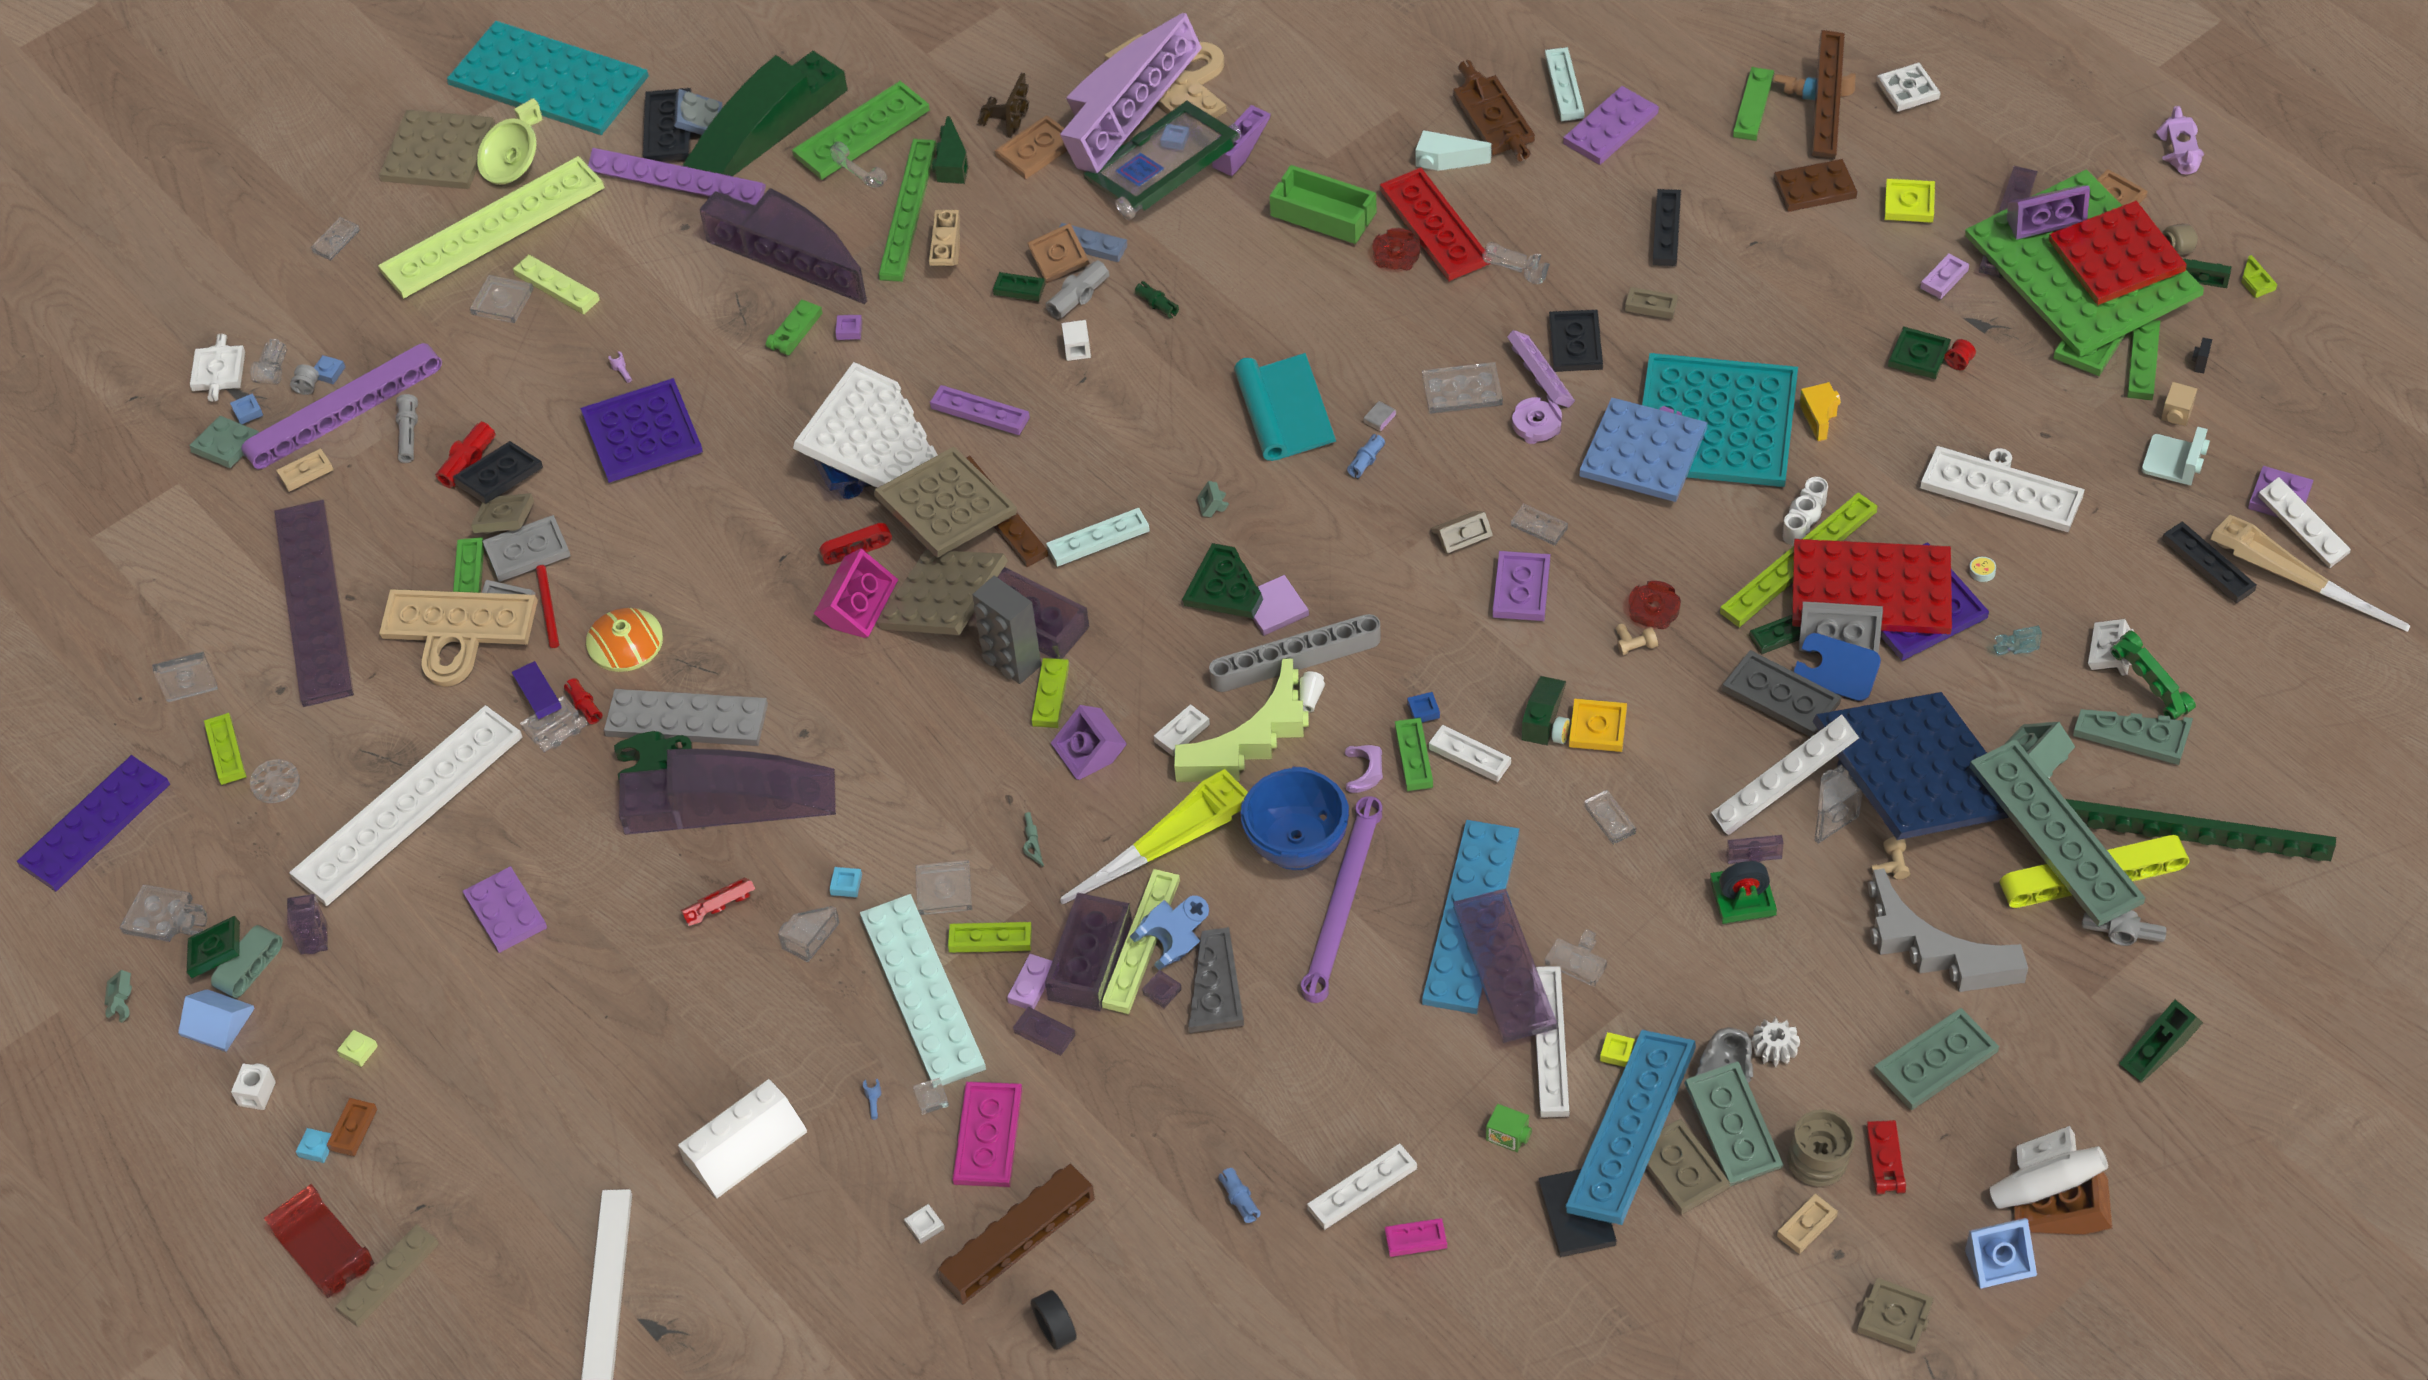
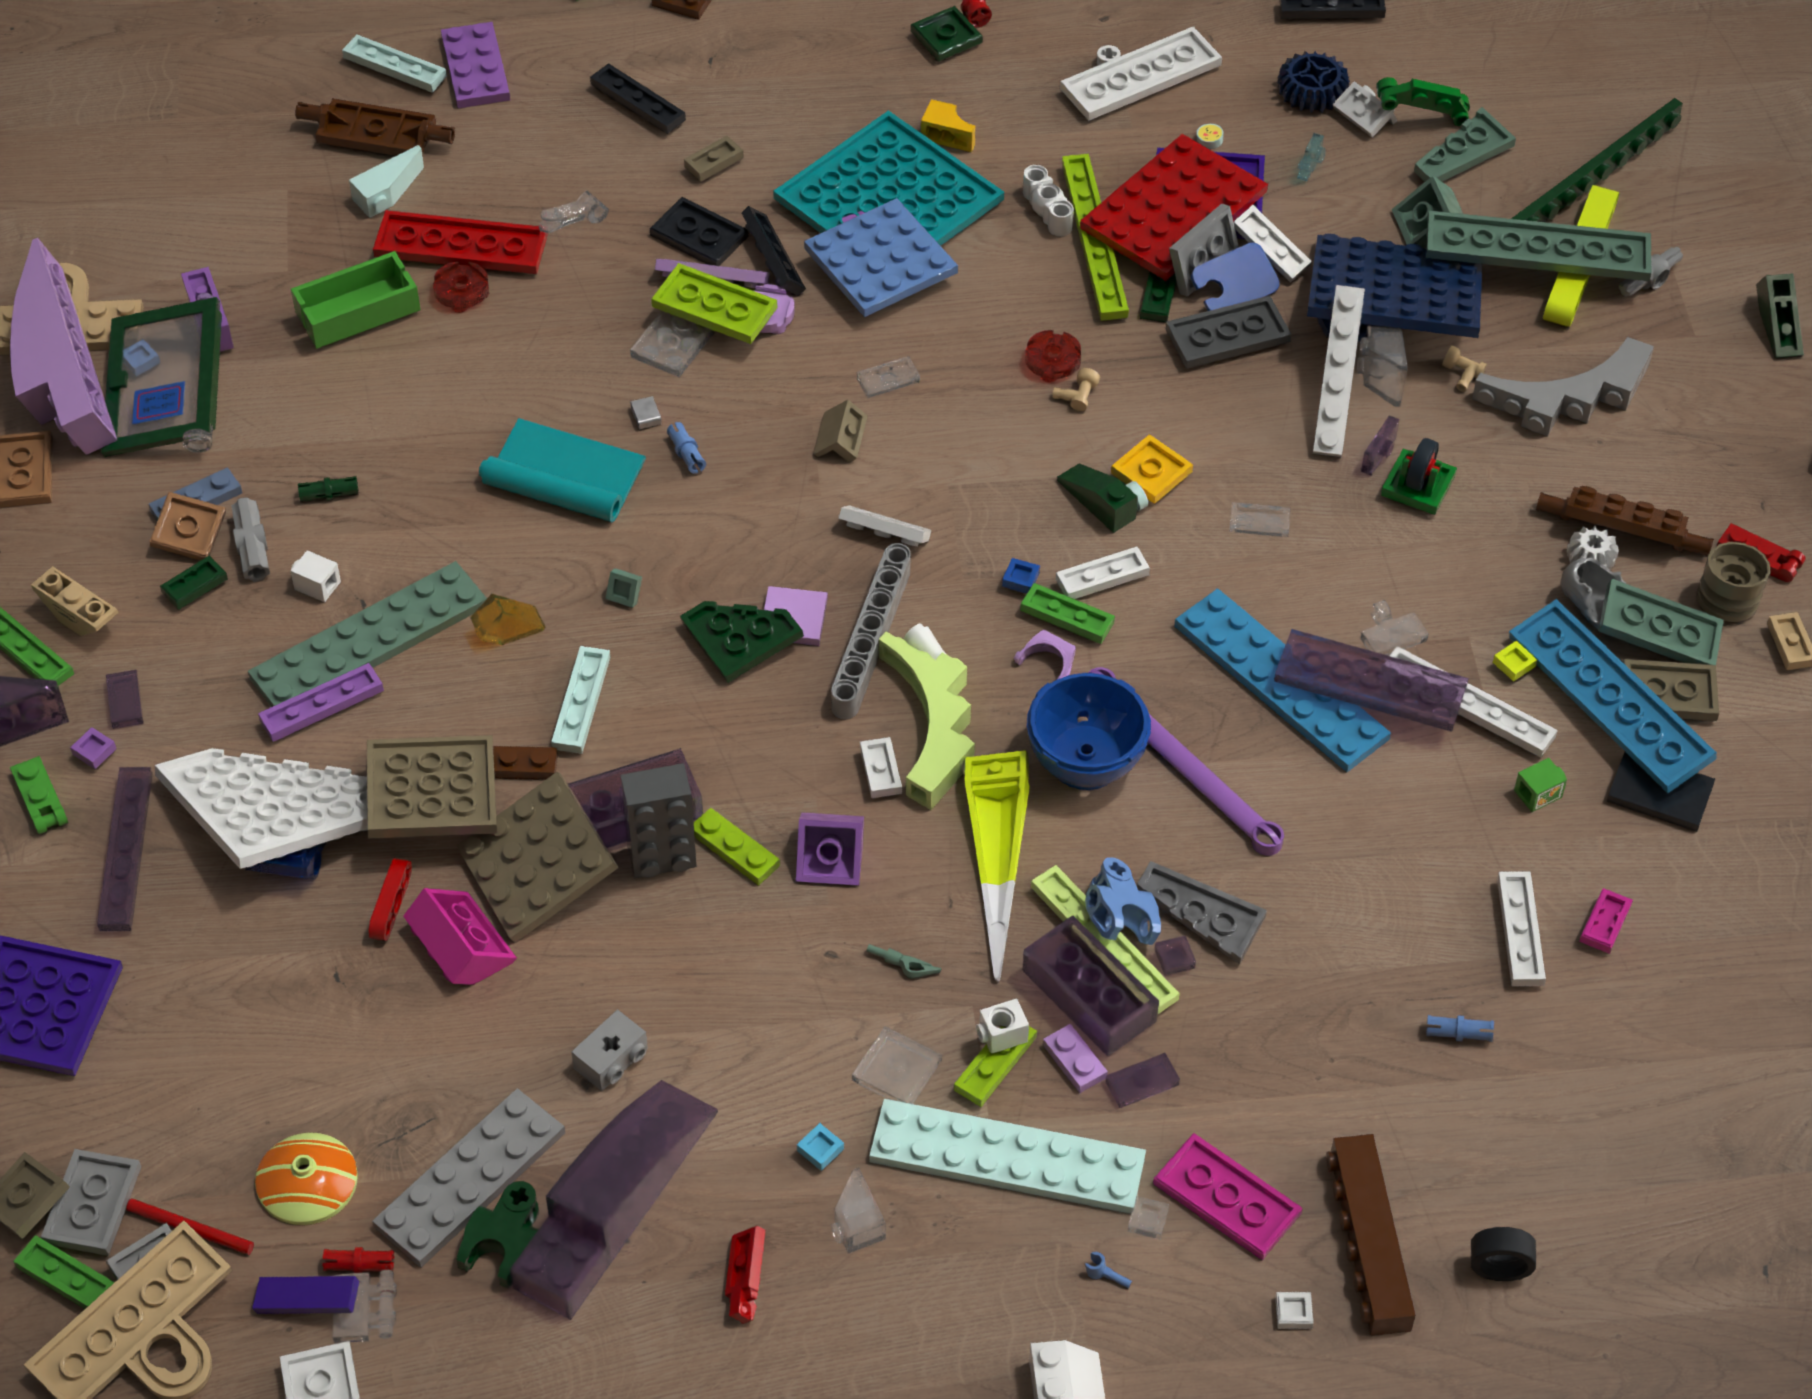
camera: 60 degrees left, 0 degrees up
(786, 393) = (125, 849): none -> clear purple plate
(830, 726) = (610, 1050): none -> light grey brick
(901, 316) = (124, 699): none -> clear purple tile
(1011, 929) = (1003, 1014): none -> white brick
(1060, 400) = (371, 634): none -> sand green plate
(1127, 457) = (506, 620): none -> clear yellow slope
(1397, 604) = (884, 526): none -> white plate
(1502, 386) = (714, 303): none -> lime plate
(1521, 586) = (946, 429): medium lavender plate -> none
(1594, 389) = (773, 251): none -> black plate
(1830, 1048) = (1626, 516): none -> reddish brown plate
(1894, 664) = (1276, 245): none -> white plate
(1936, 1059) = (1689, 461): sand green plate -> none
(2106, 595) = (1312, 81): none -> dark blue gear

